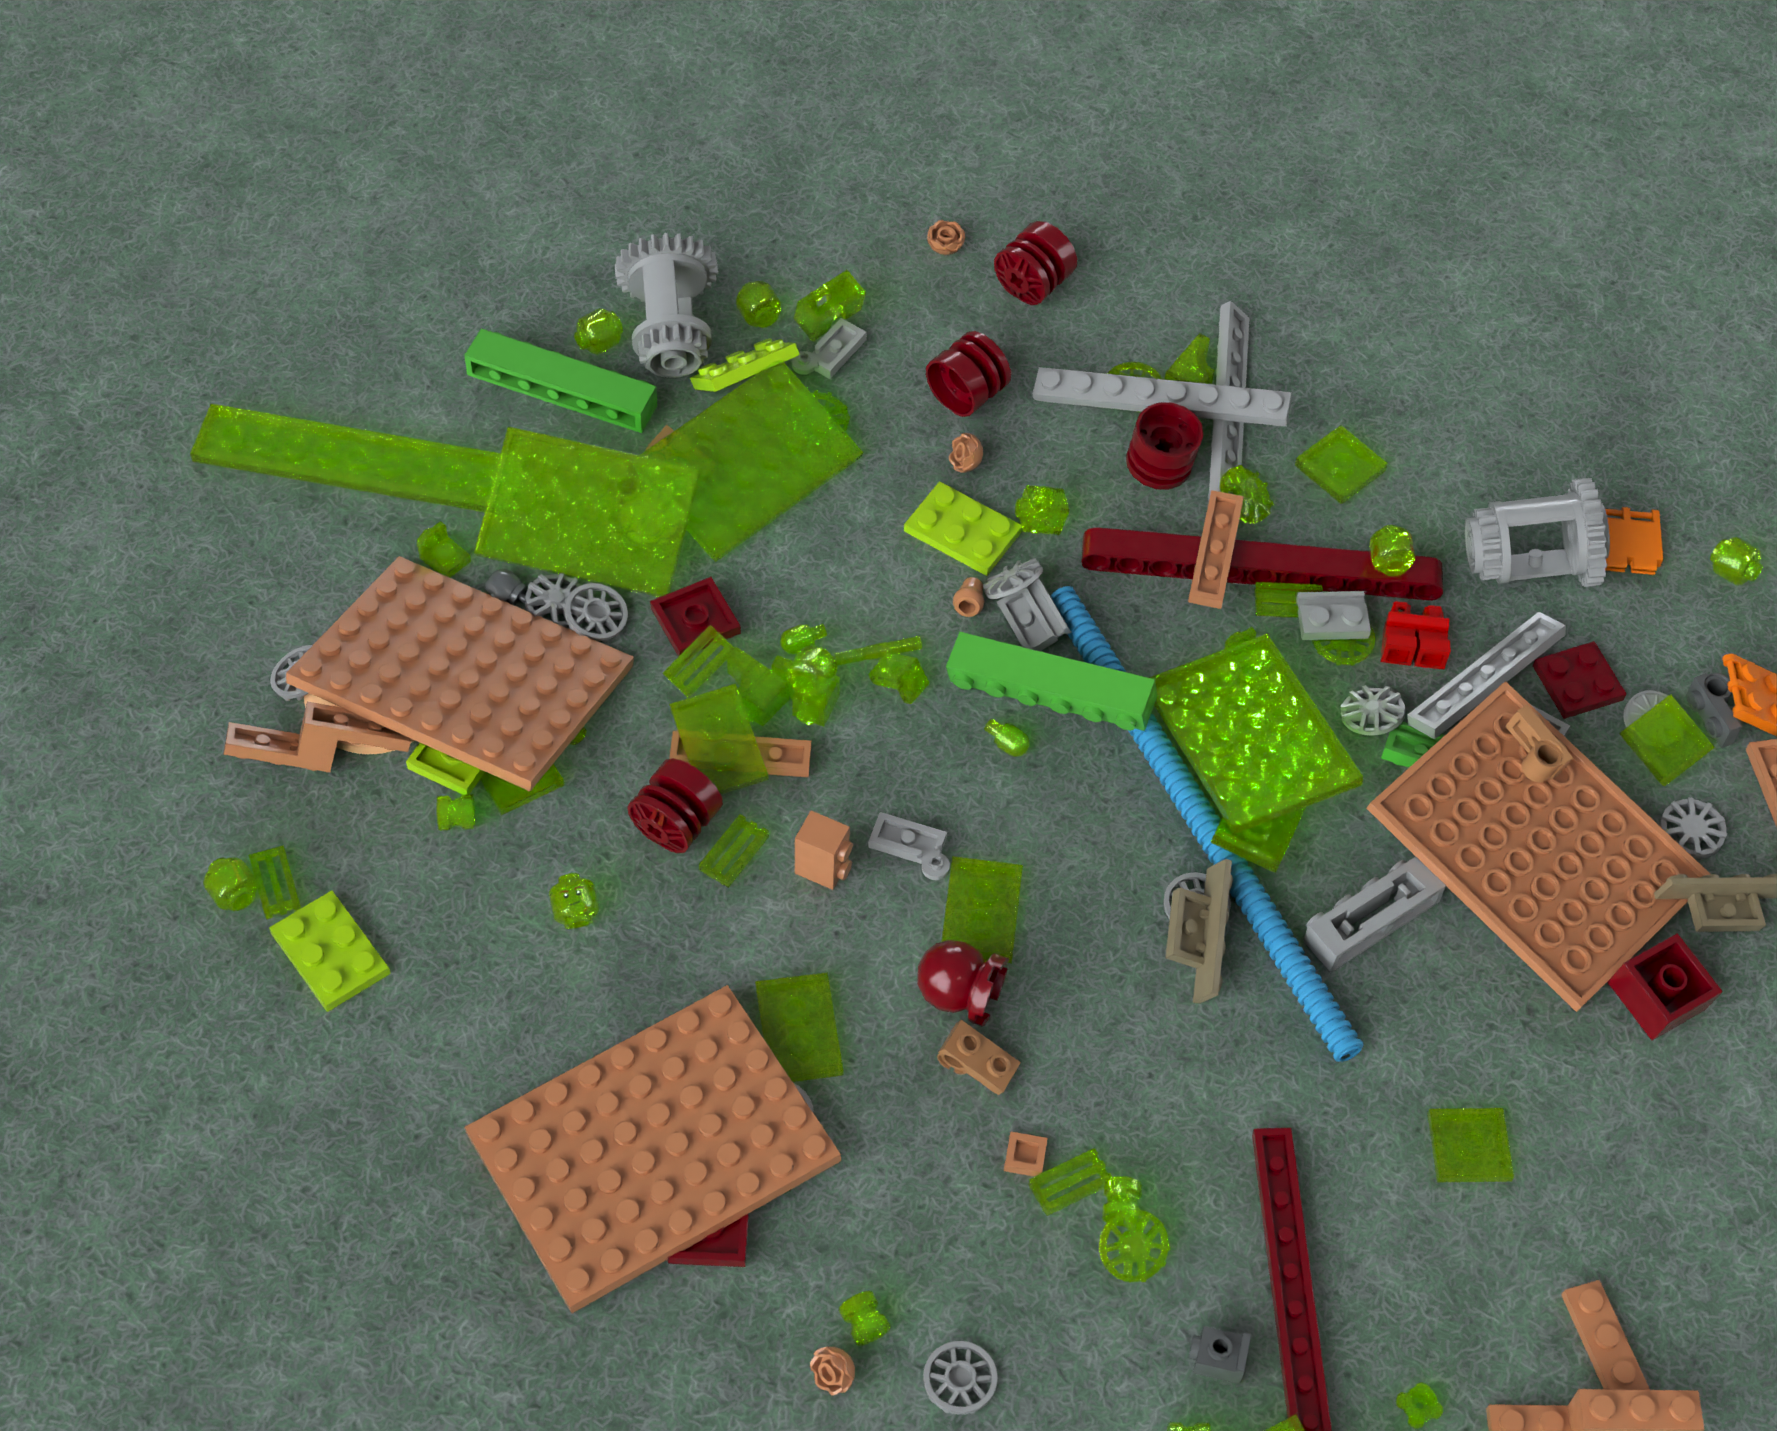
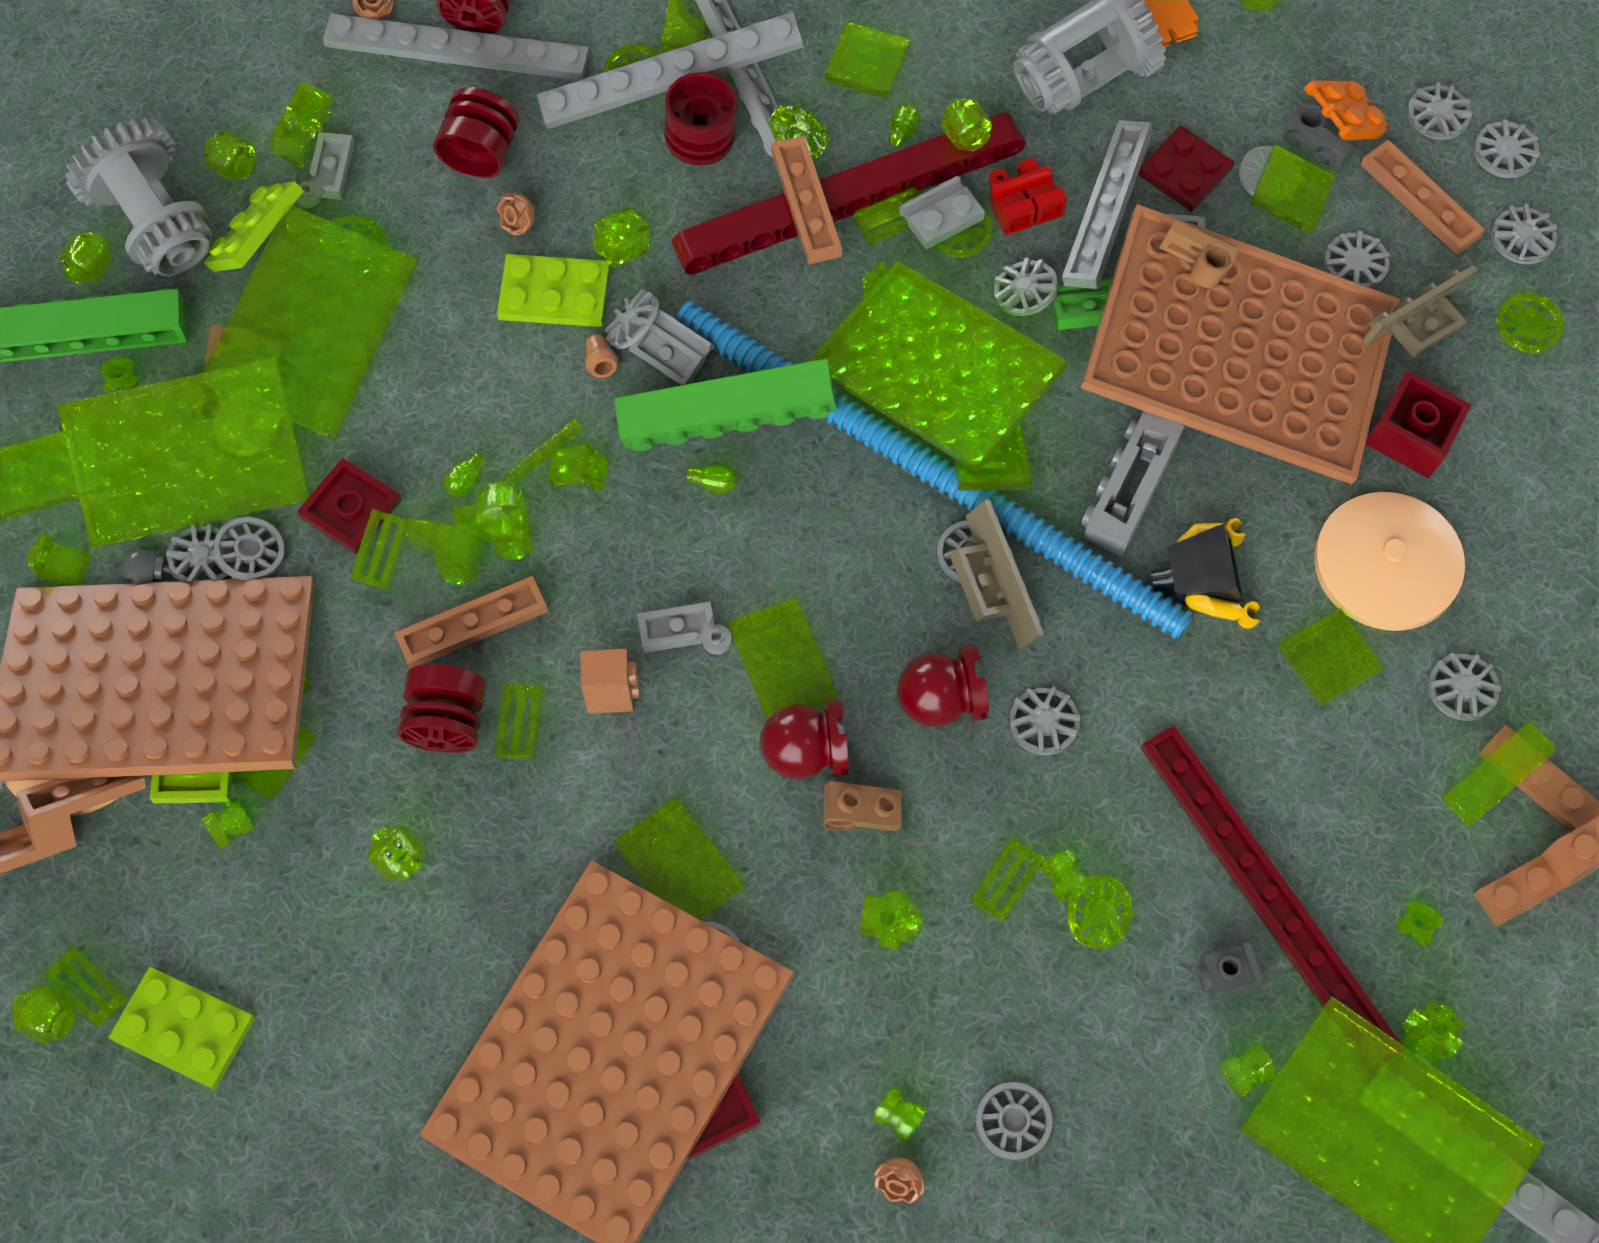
camera: 25 degrees left, 10 degrees up
(573, 424) = (118, 366): none -> clear neon green plate
(720, 738) = (445, 619): clear neon green tile -> none
(948, 1158) = (878, 916): none -> clear neon green brick
(996, 302) = (456, 46): none -> light grey plate
(1025, 1154) = (953, 875): nougat tile -> none
(1101, 995) = (941, 688): none -> dark red tile
(1180, 1069) = (1044, 720): none -> light grey wheel
(1345, 526) = (904, 118): none -> clear neon green cylinder
(1395, 1017) = (1207, 572): none -> black torso
(1565, 1314) = (1499, 774): none -> clear neon green plate
(1573, 1092) = (1389, 561): none -> light nougat dish
(1581, 1230) = (1464, 685): none -> light grey wheel

